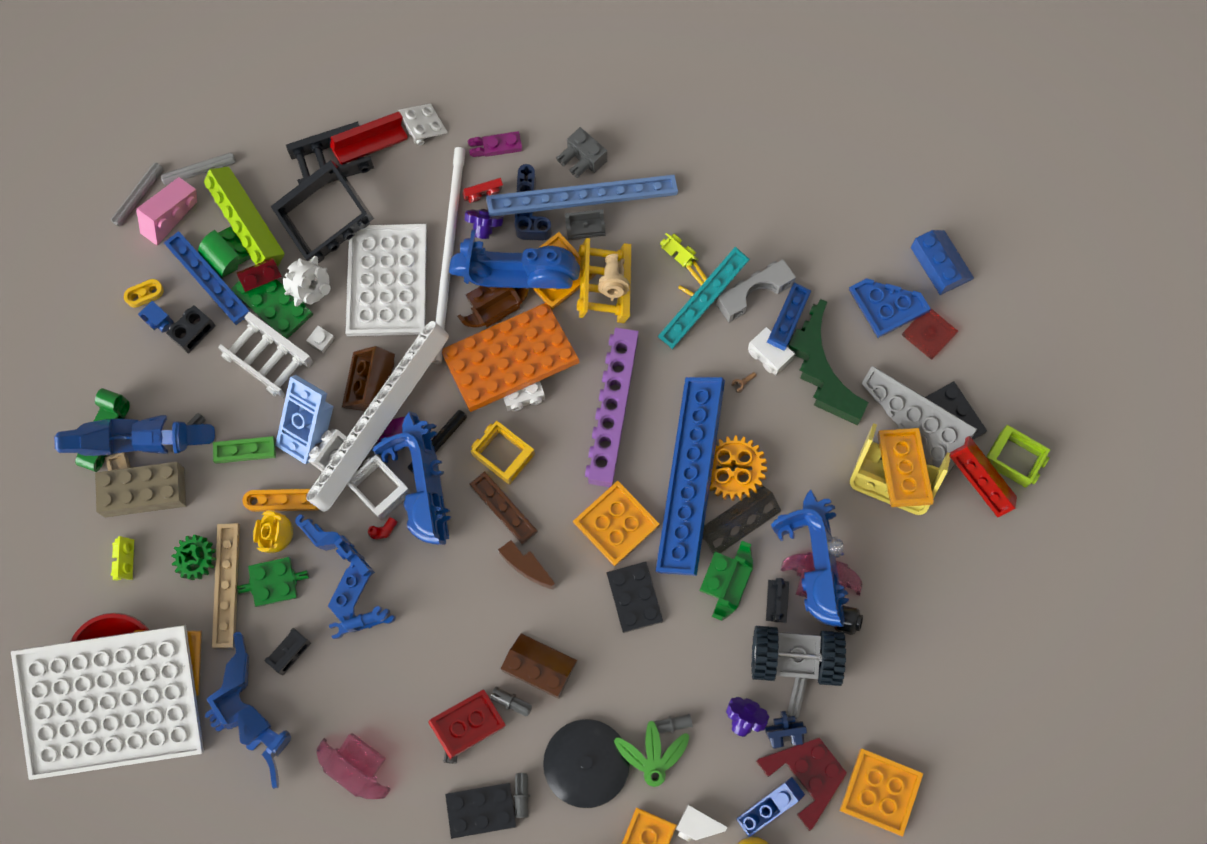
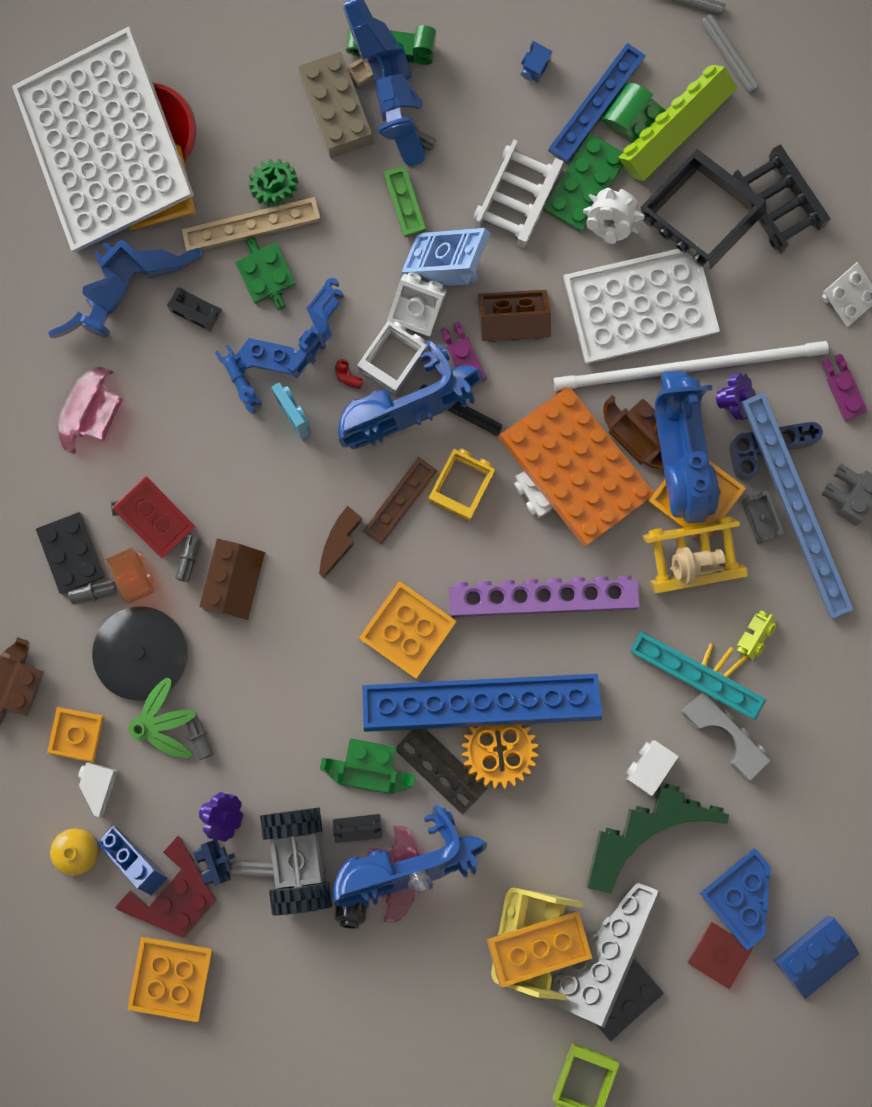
camera: 75 degrees right, 10 degrees up
(124, 552) = (265, 108): neon yellow hinge -> none
(144, 293) = (563, 40): yellow plate -> none
(165, 210) = (668, 33): bright pink wedge -> none
(194, 332) = (527, 108): black brick -> none
(259, 274) = (610, 159): dark red plate -> none
(272, 532) = (316, 258): yellow cylinder -> none
(278, 500) = (357, 260): light orange plate -> none
(320, 339) = (552, 249): white plate -> none
(368, 138) = (812, 237): red panel -> none
(377, 417) = (472, 337): white beam -> none
(403, 579) = (294, 414): none -> medium azure plate
(488, 188) = (776, 391): red plate -> none
(514, 756) = (131, 575): none -> clear orange brick
(634, 597) = (329, 668): black plate -> none
(744, 381) = (609, 743): medium nougat hand -> none
(789, 316) = (699, 781): blue tile -> none
(984, 477) = (548, 1045): red panel -> none

